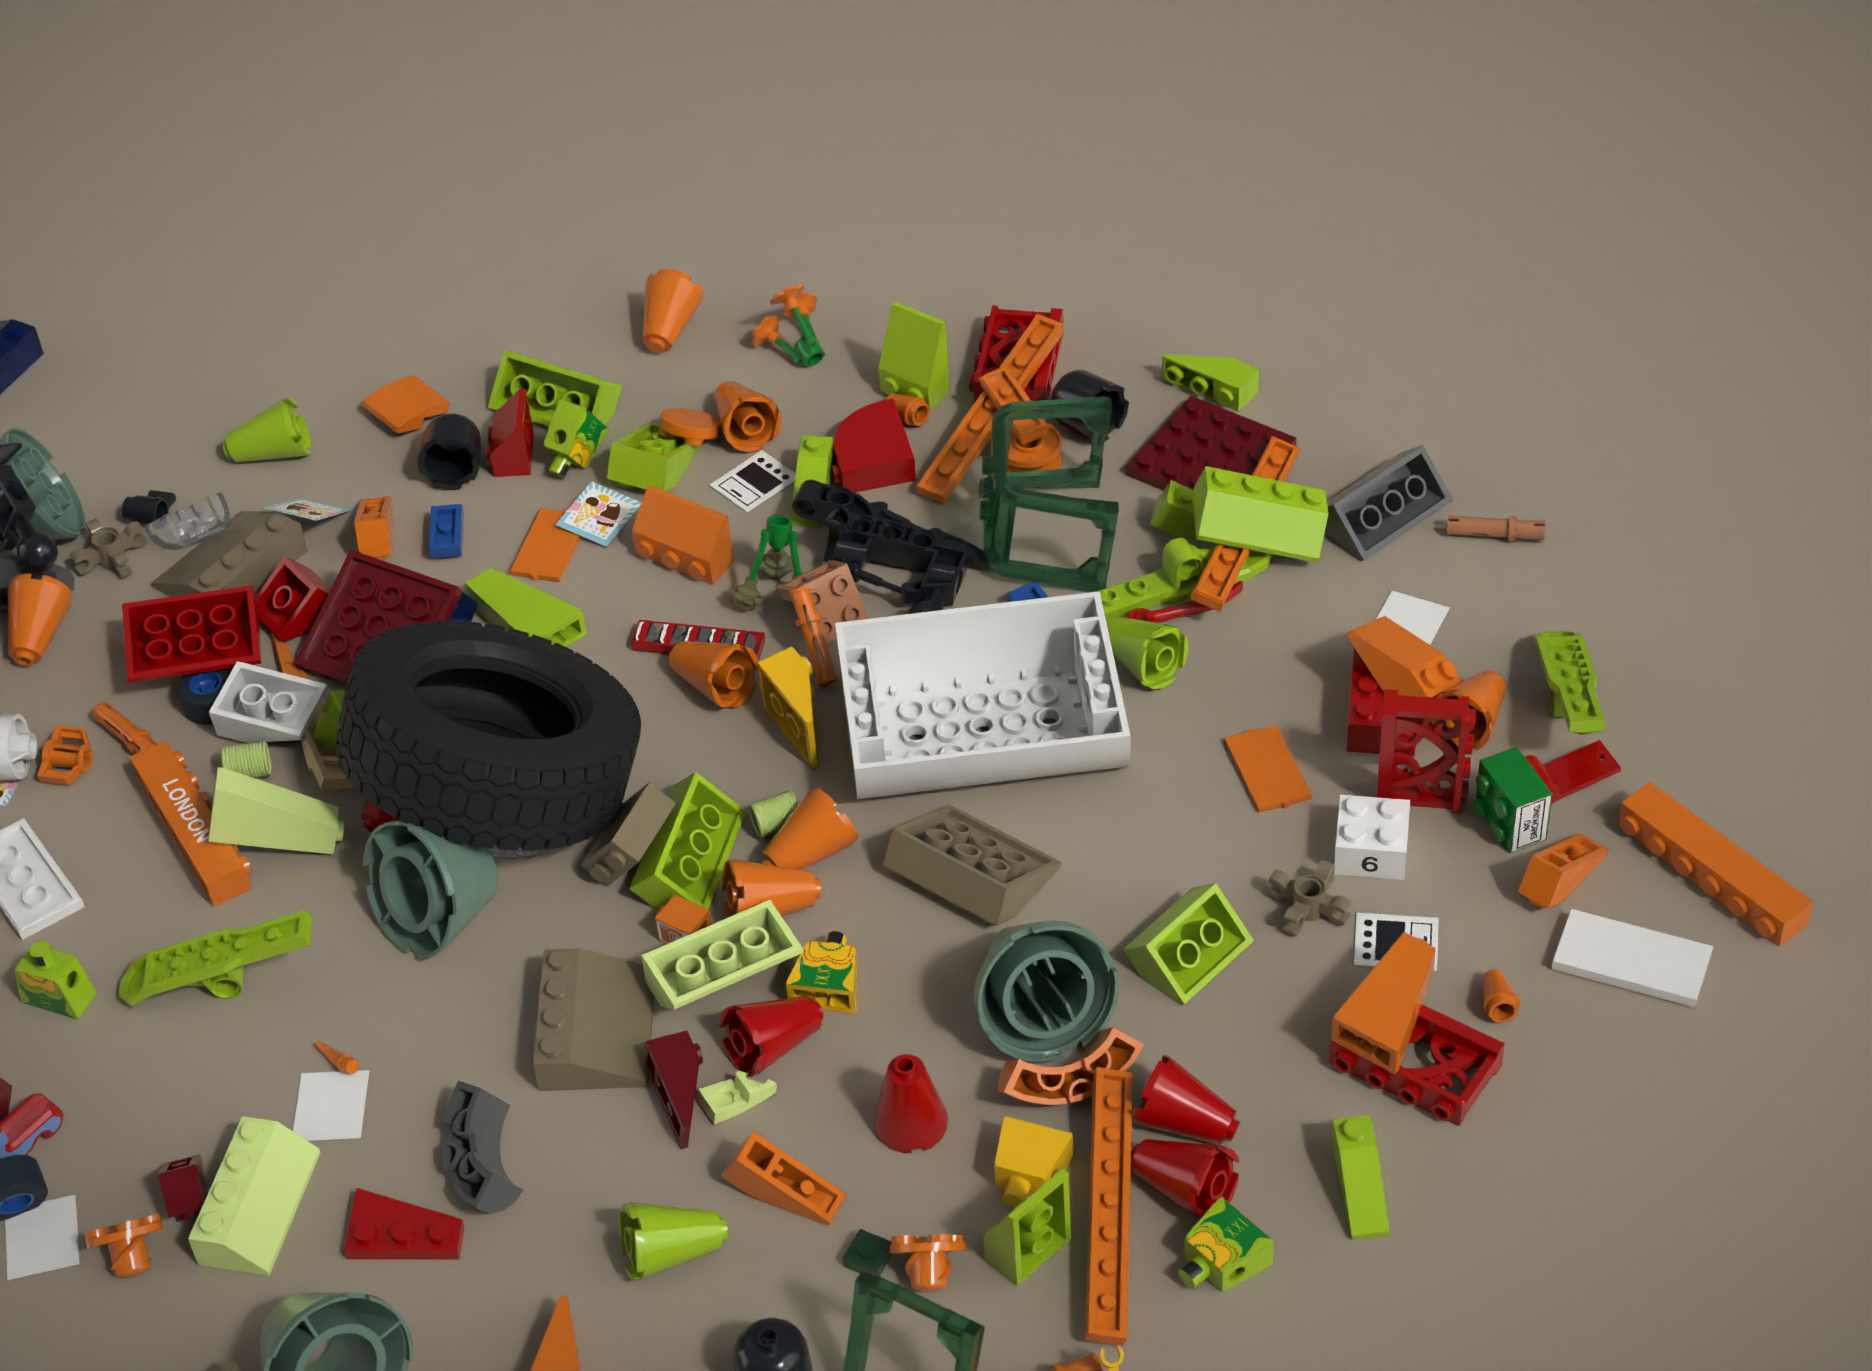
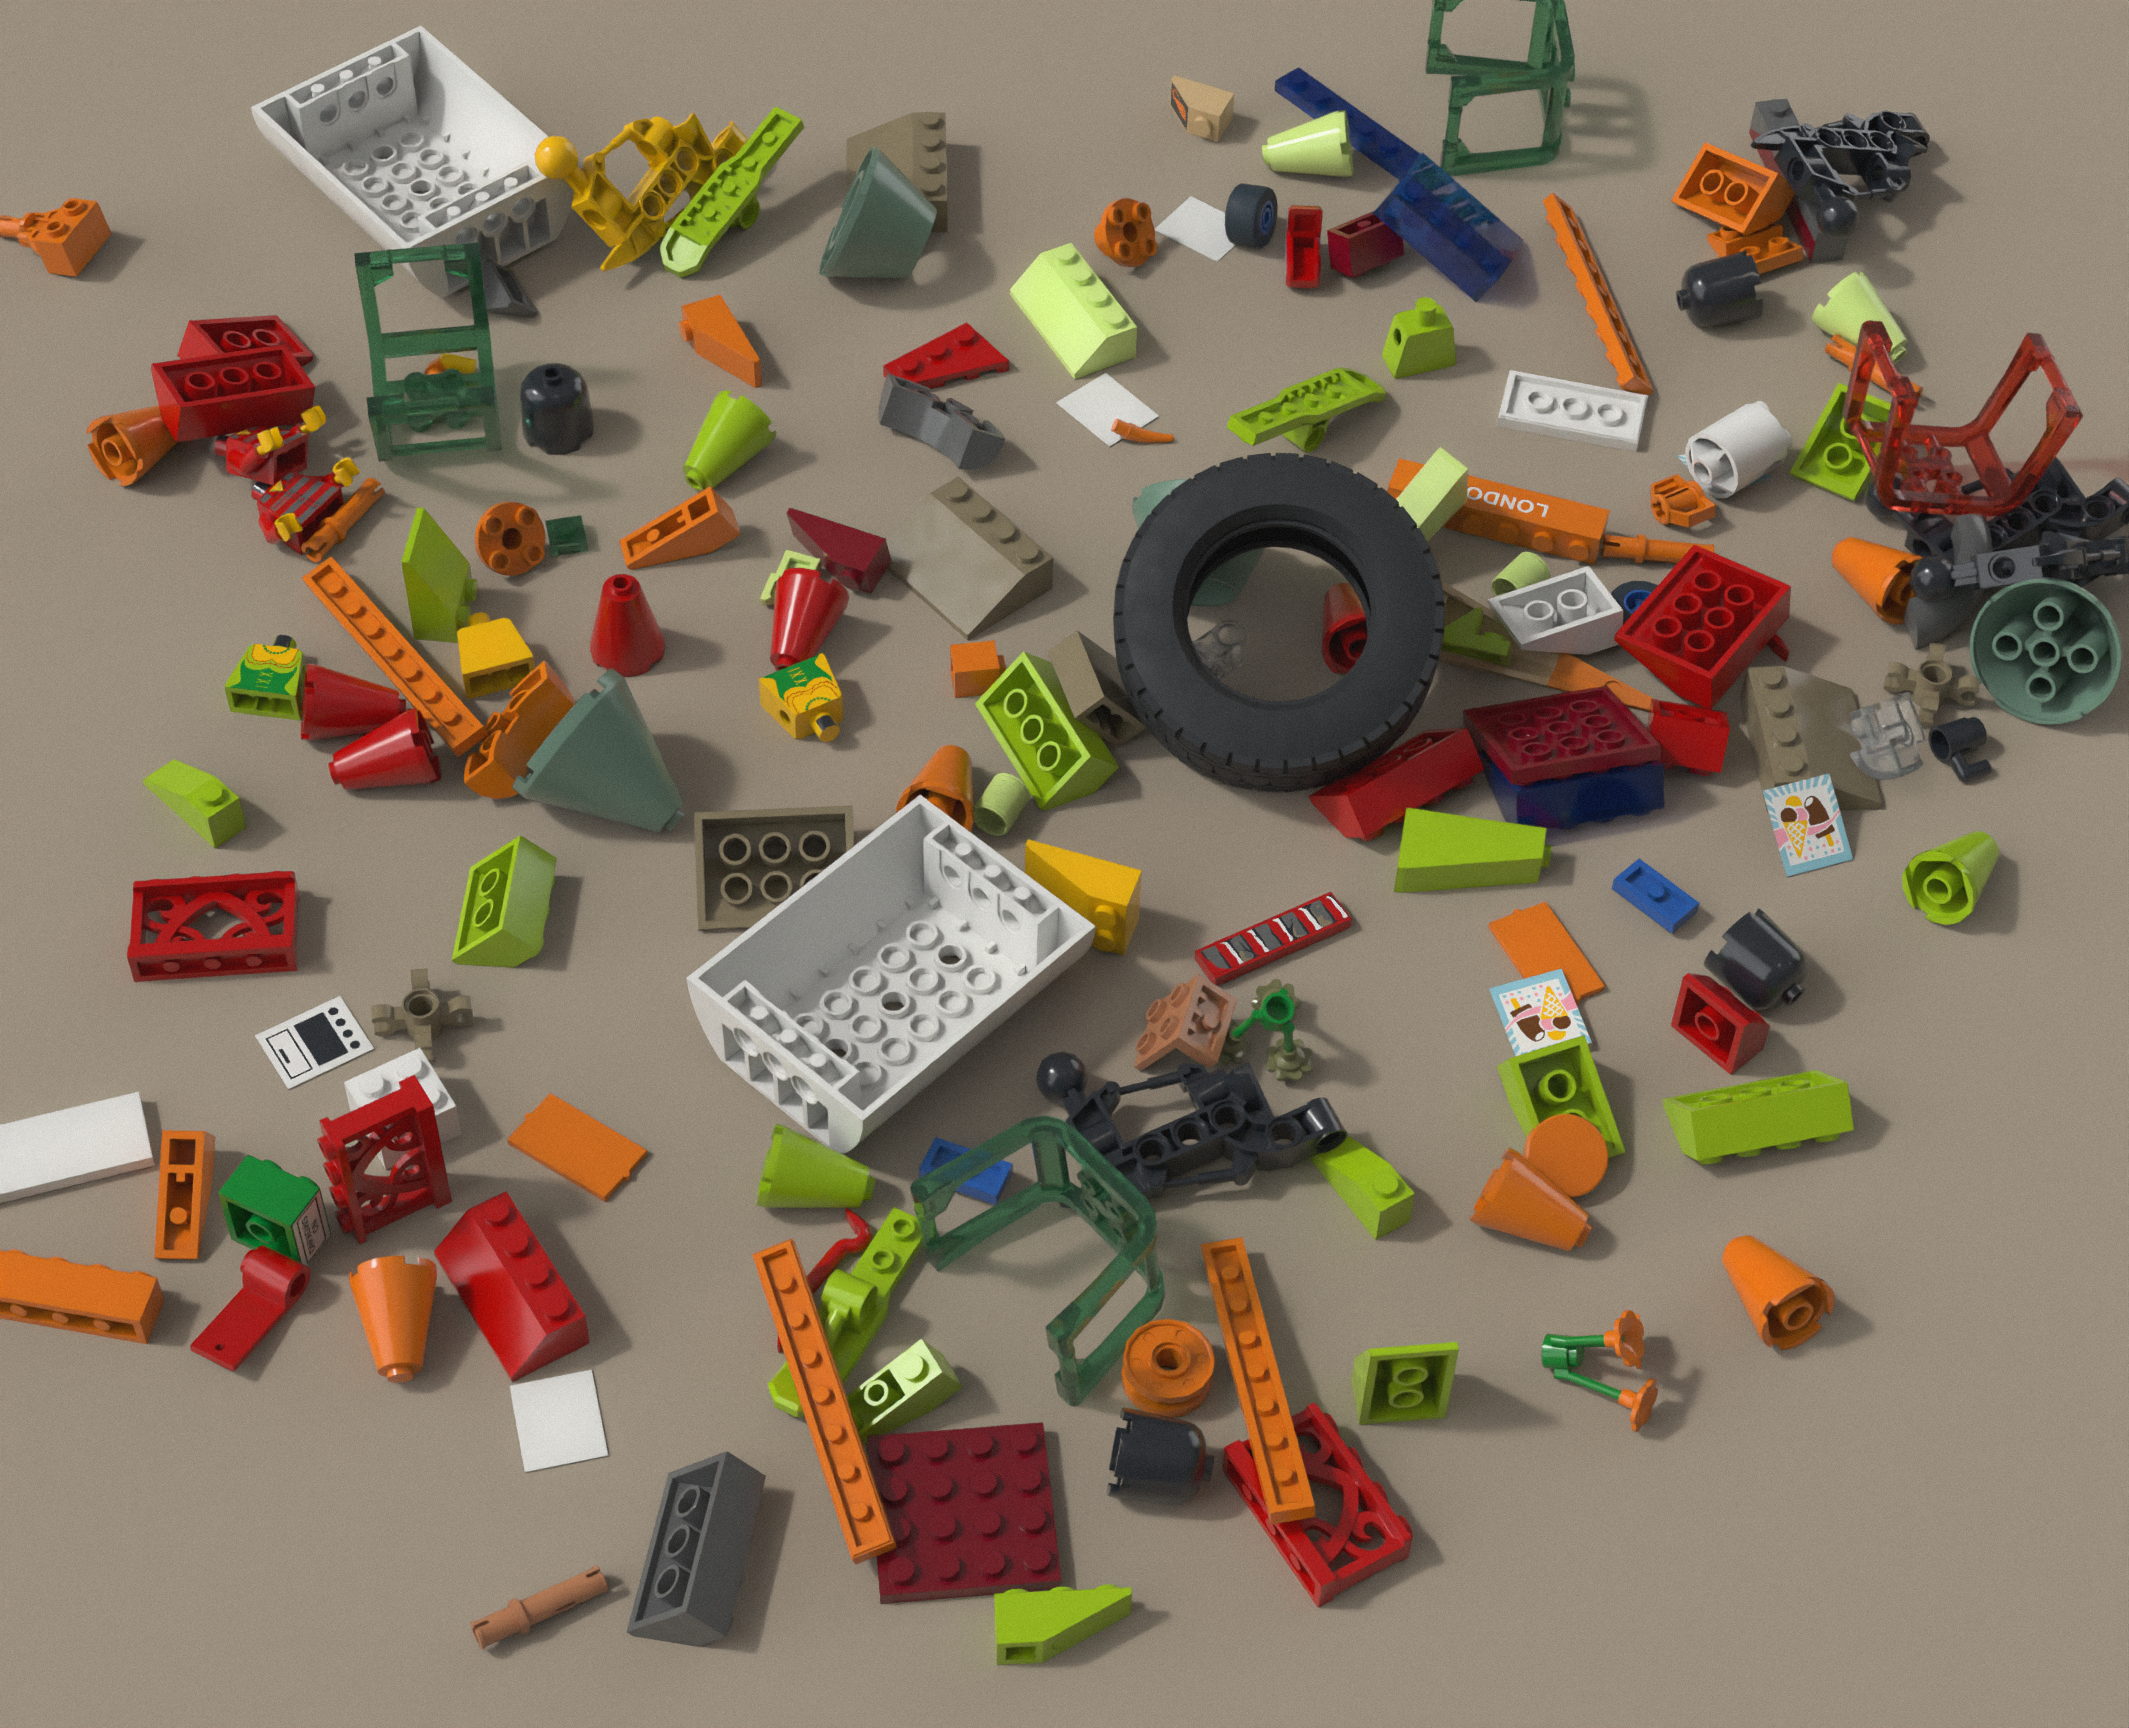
camera: 135 degrees right, 5 degrees up
(183, 1187) = (1139, 290): dark red slope -> none
(375, 527) = (1726, 853): orange slope -> none
(405, 404) = (1890, 1006): orange slope -> none
(573, 437) = (1654, 1047): lime torso -> none
(683, 535) = (1404, 1016): orange slope -> none
(716, 670) = (1212, 894): orange cone -> none
(719, 955) = (897, 643): yellowish green slope -> none
(754, 481) = (1437, 1161): white sticker -> none
(755, 883) = (929, 719): orange cone -> none
(802, 598) = (1152, 969): orange pin -> none
(873, 449) = (1341, 1261): red brick -> none
(912, 410) = (1358, 1338): orange cone -> none
(1004, 388) = (1222, 1375): orange tile -> none
(1260, 514) = (801, 1384): lime slope -> none
(1386, 1004) = (254, 907): orange slope -> none
(1402, 659) = (493, 1287): orange slope -> none
(1499, 997) = (170, 1025): orange cone -> none
(1570, 680) = (304, 1397): lime piece -> none

